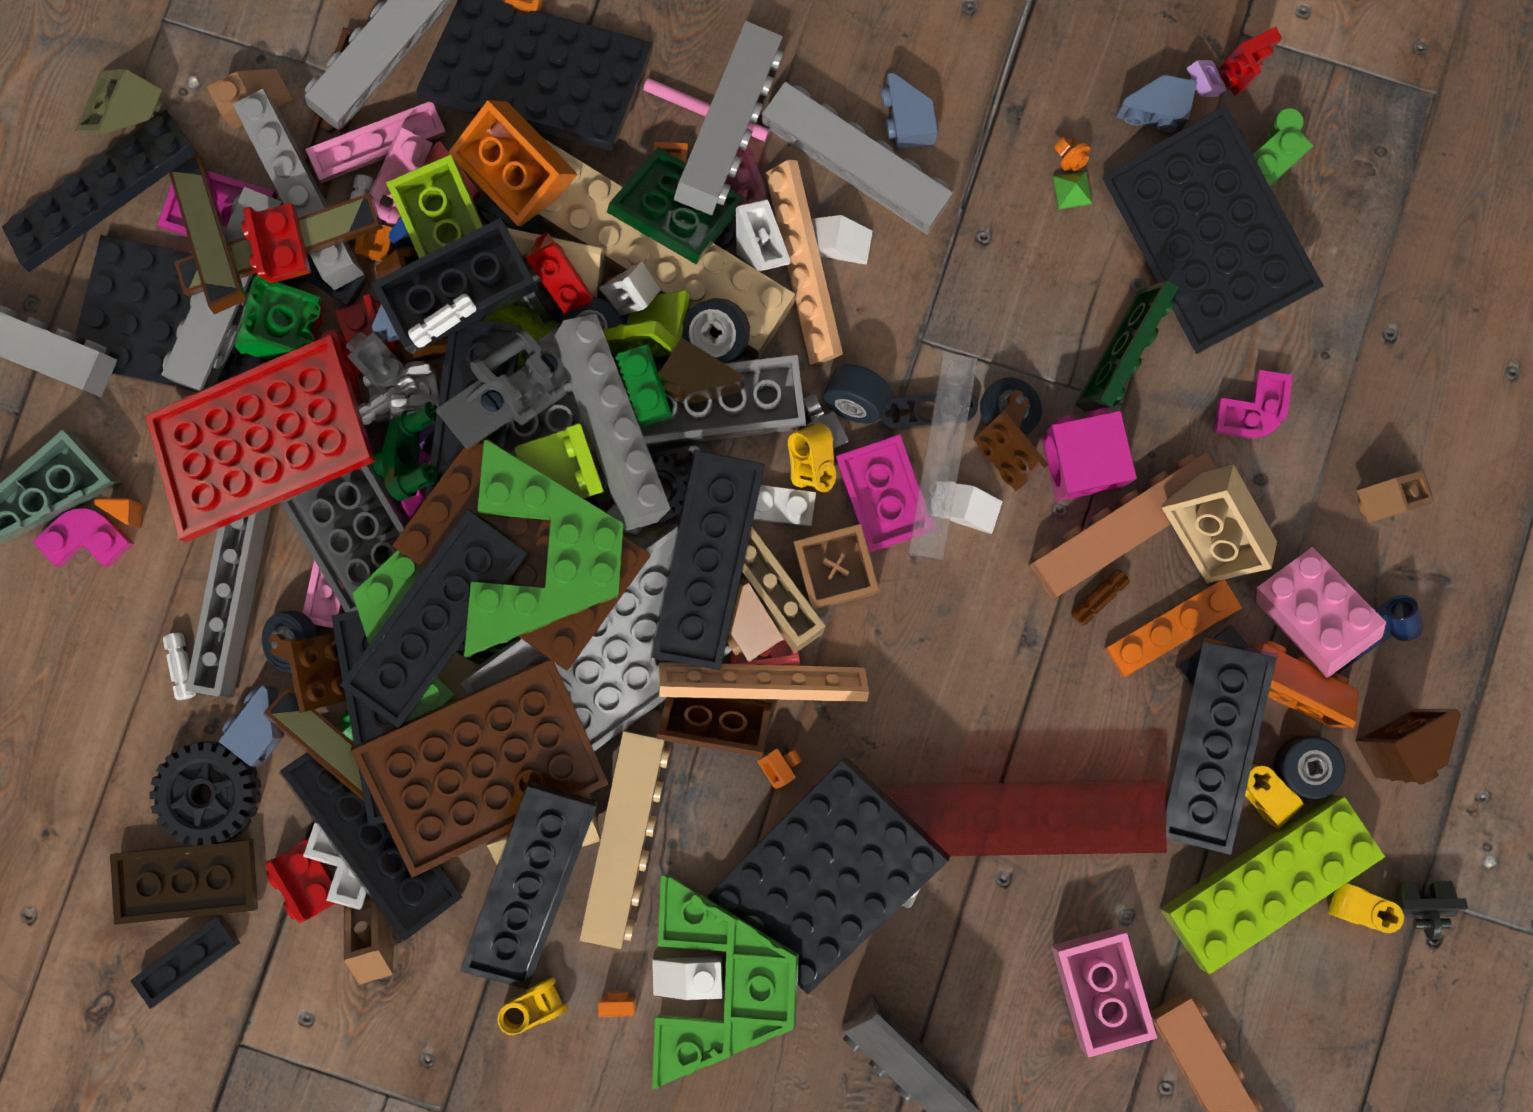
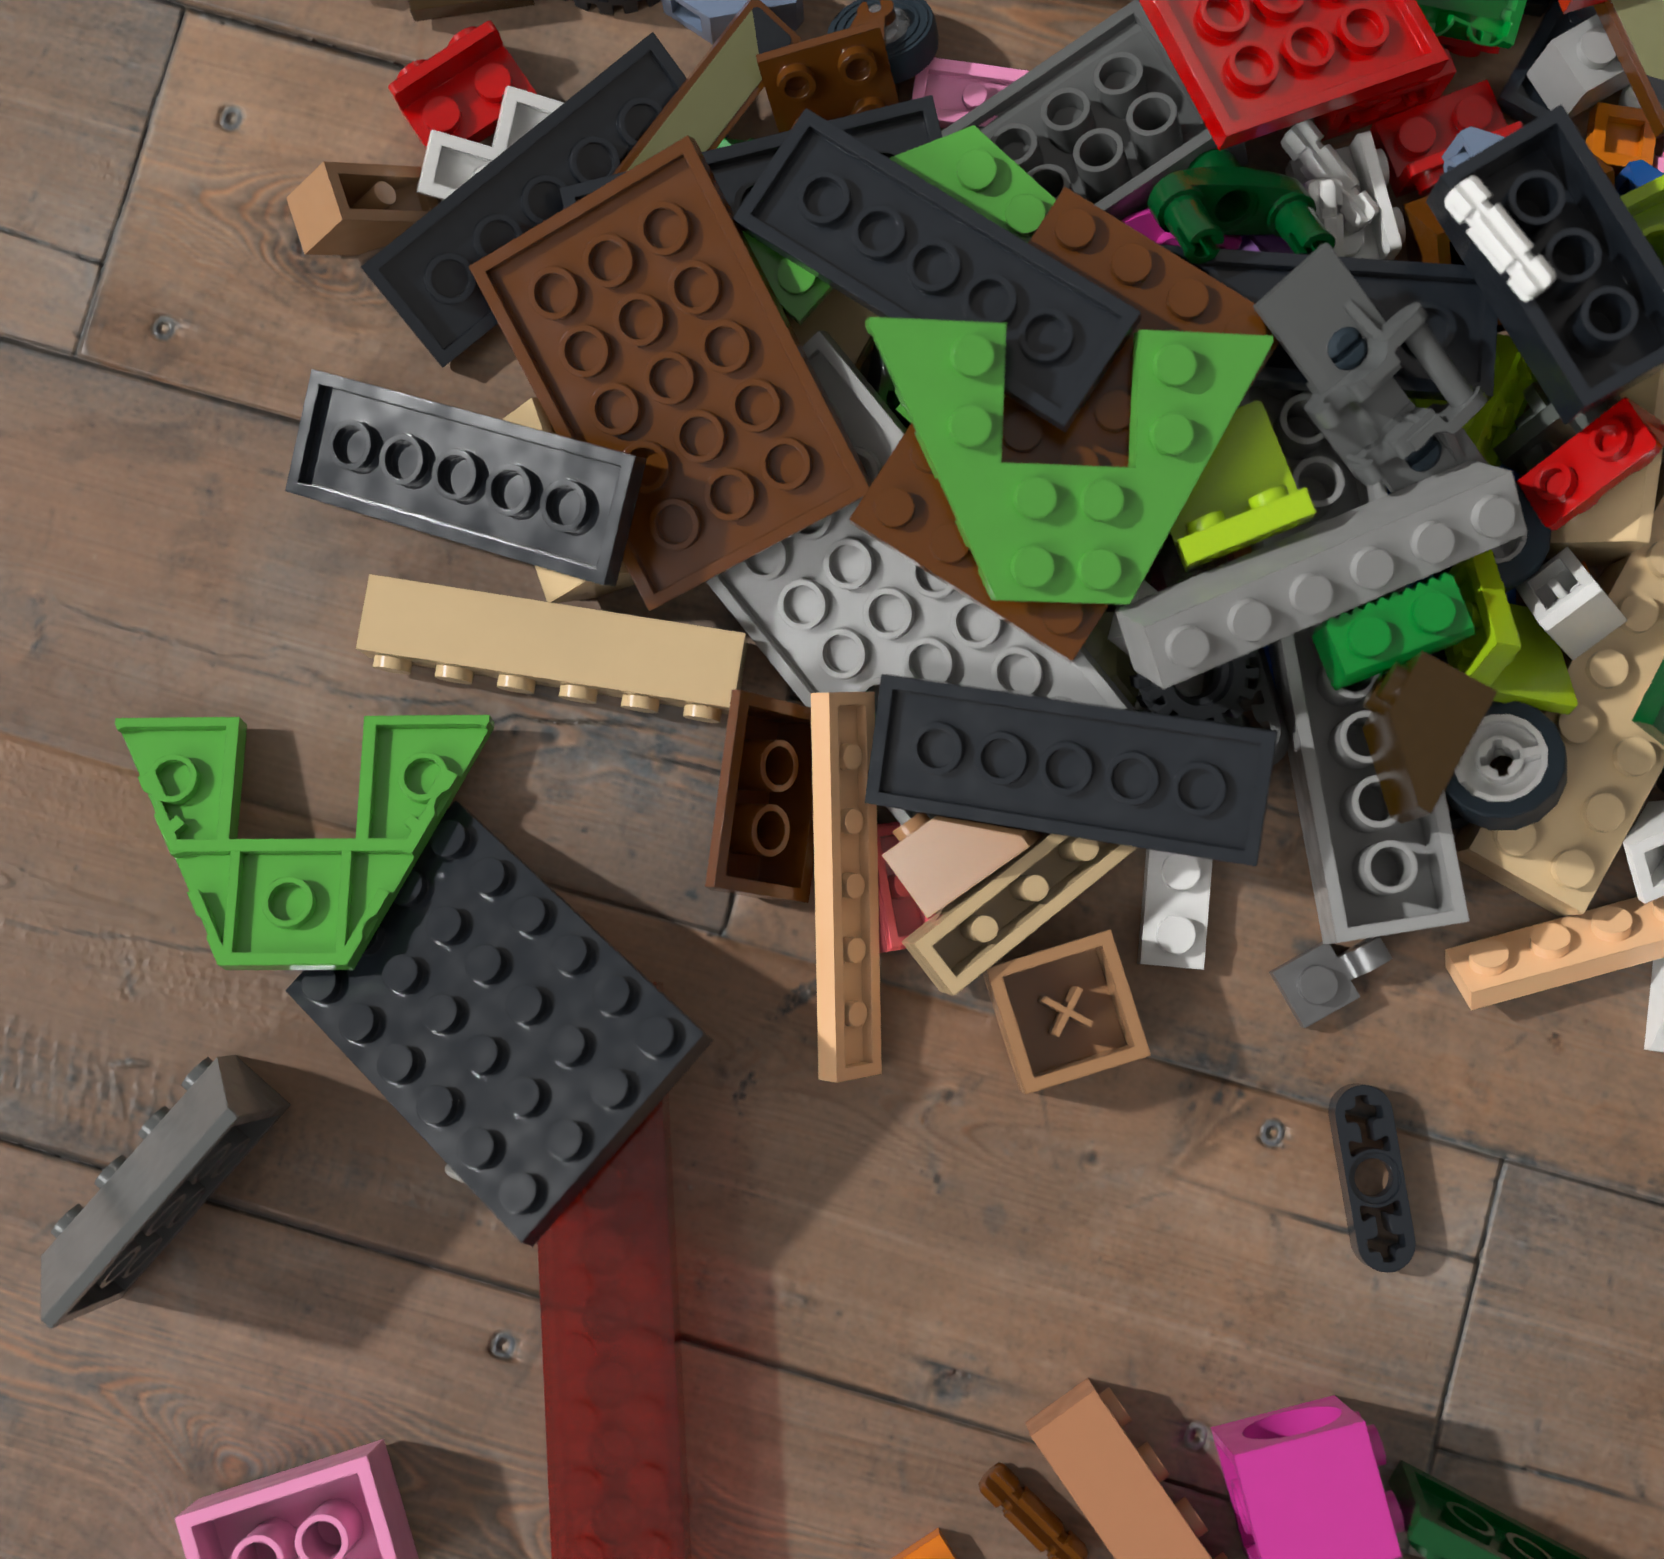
camera: 90 degrees right, 0 degrees up
(375, 361) = (1403, 143): flat silver hips -> none
(538, 1005) = (259, 507): yellow piece -> none
(617, 1004) = (260, 649): orange plate -> none
(688, 977) = (310, 775): white slope -> none
(778, 767) = (691, 921): orange tile -> none
(812, 455) = (1273, 956): yellow piece -> none
(856, 393) = (1397, 1039): black wheel -> none
(881, 491) = (1209, 1099): dark pink plate -> none
(942, 457) = (1288, 1208): clear plate -> none
(975, 508) = (1194, 1253): white slope -> none
(1010, 413) = (1379, 1336): reddish brown plate -> none

